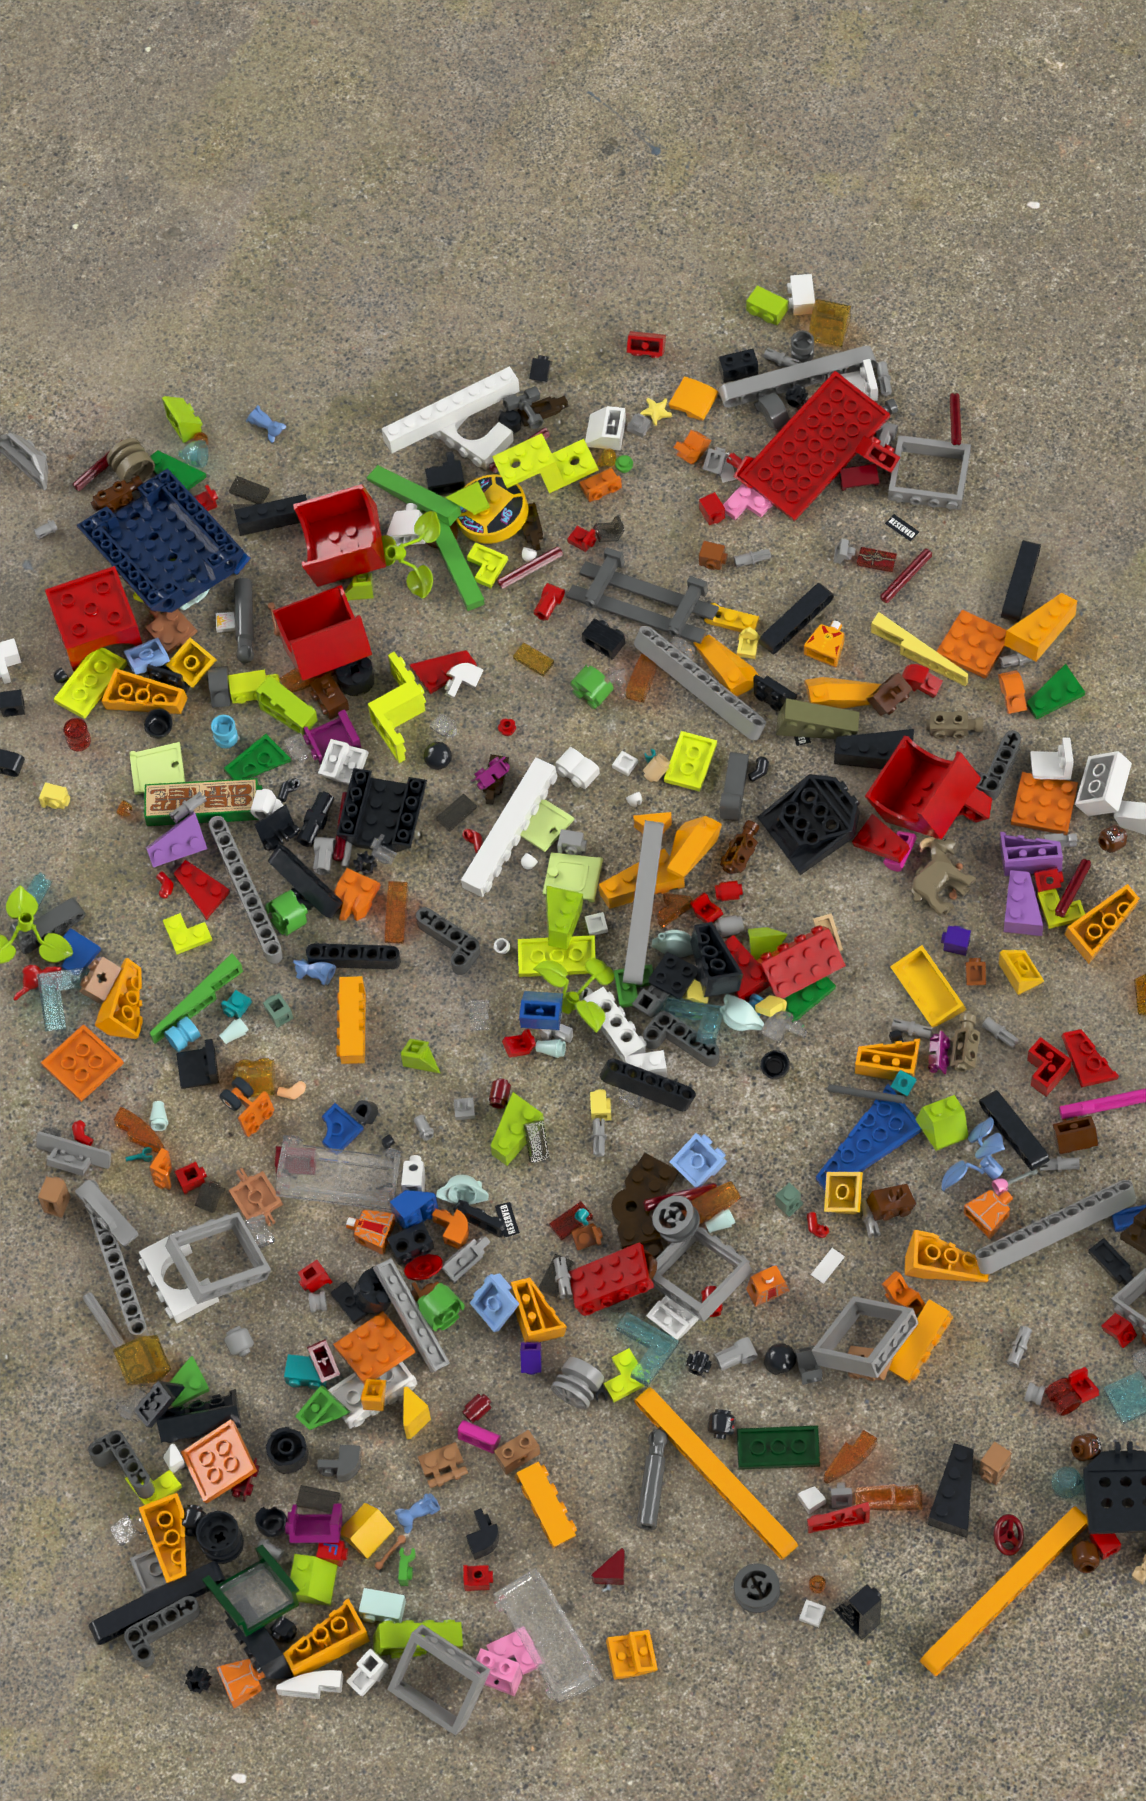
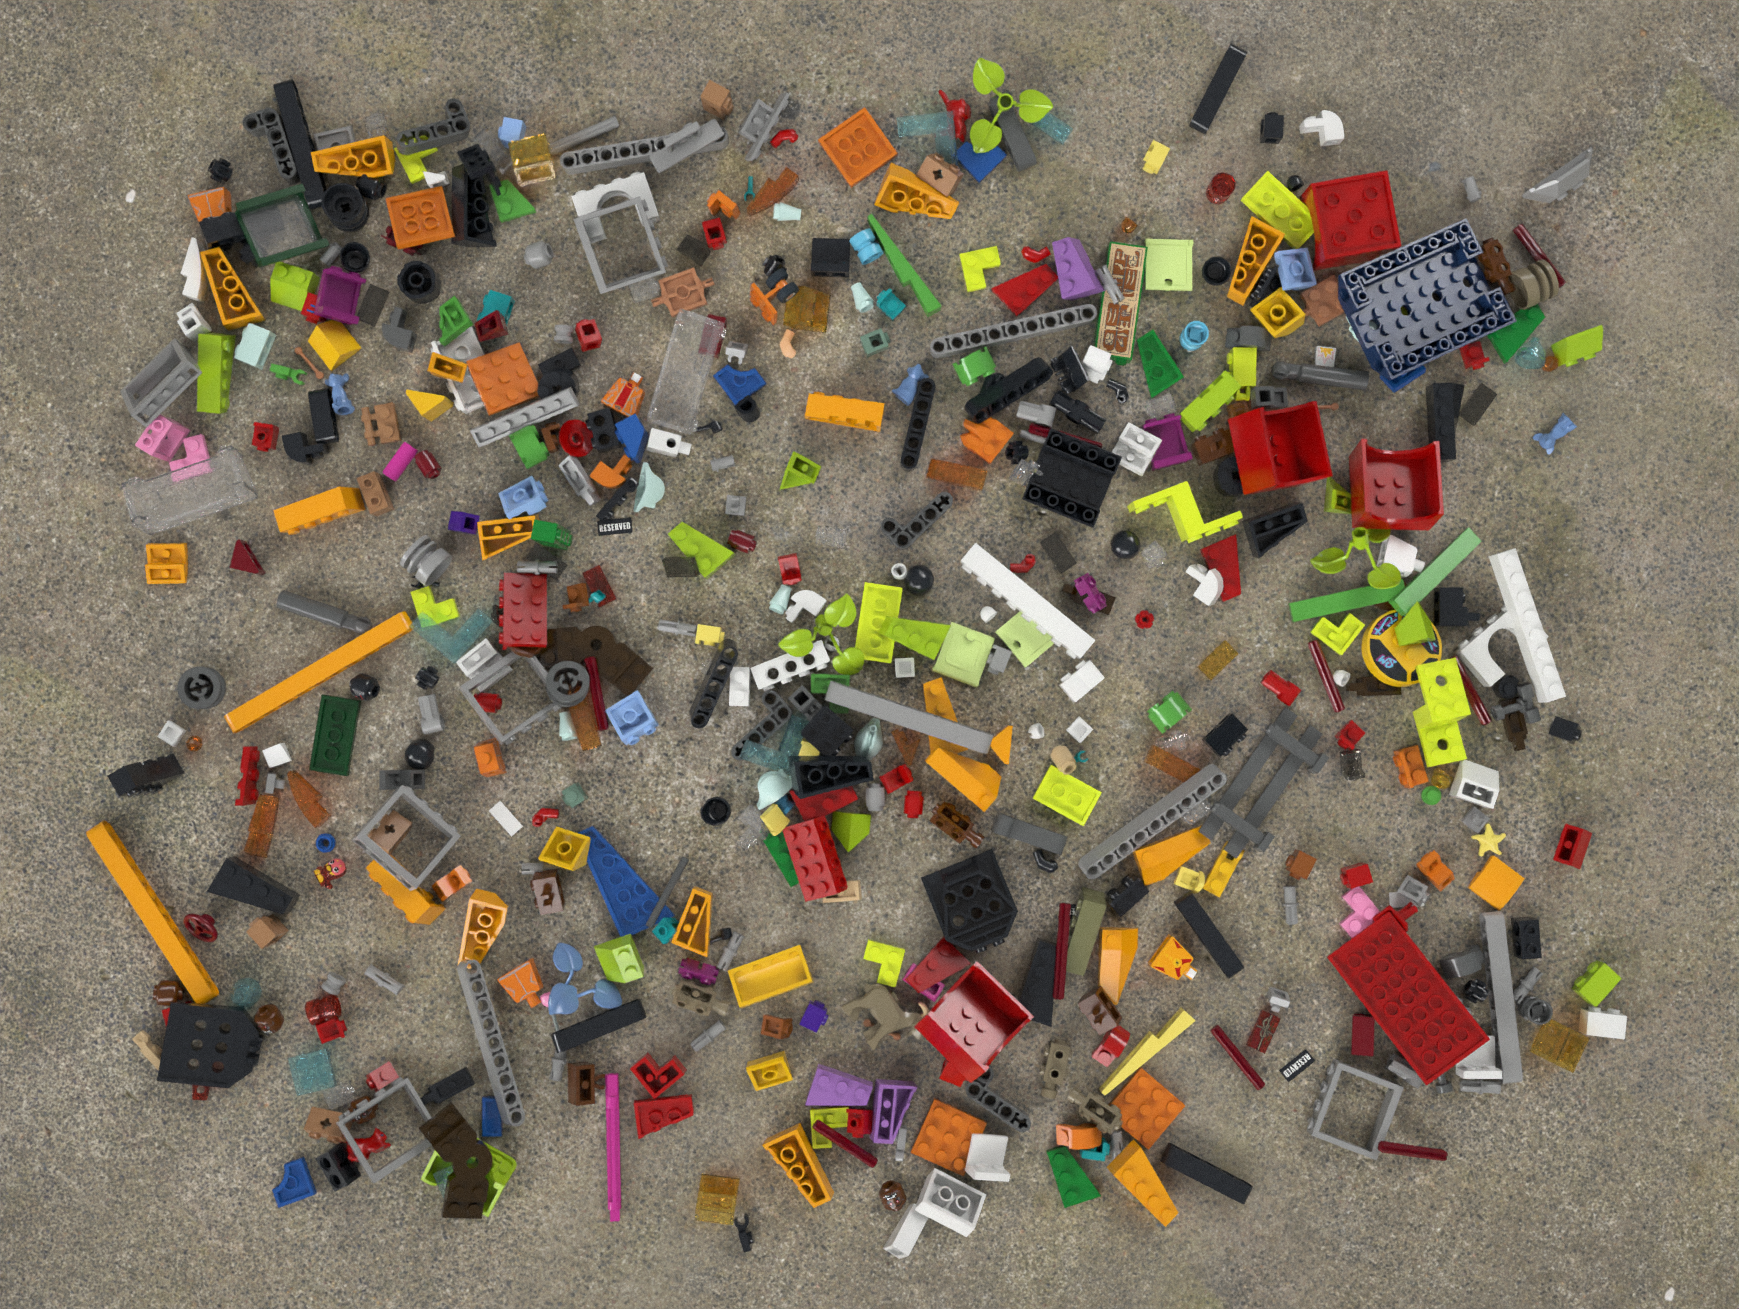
camera: 90 degrees right, 25 degrees up
(114, 1391) = (511, 130): none -> light blue brick
(216, 1114) = (773, 264): none -> black gear
(274, 658) = (1268, 397): none -> dark grey brick
(306, 1133) = (736, 349): none -> light grey tile
(397, 632) = (1273, 526): none -> black wedge
(445, 1522) = (323, 416): none -> black beam
(507, 927) = (919, 580): none -> black hair
(528, 1255) = (551, 535): none -> green brick
(541, 1010) = (812, 594): blue slope -> none
(839, 732) = (1061, 950): none -> dark red axle
(878, 454) = (1382, 1060): red brick -> none
(885, 885) = (889, 958): none -> neon yellow plate
(889, 1428) = (320, 845): none -> blue plate
(918, 1417) = (333, 870): none -> animal
(985, 677) = (1102, 1111): none -> dark tan brick
(1025, 672) = (1096, 1153): none -> teal bracket

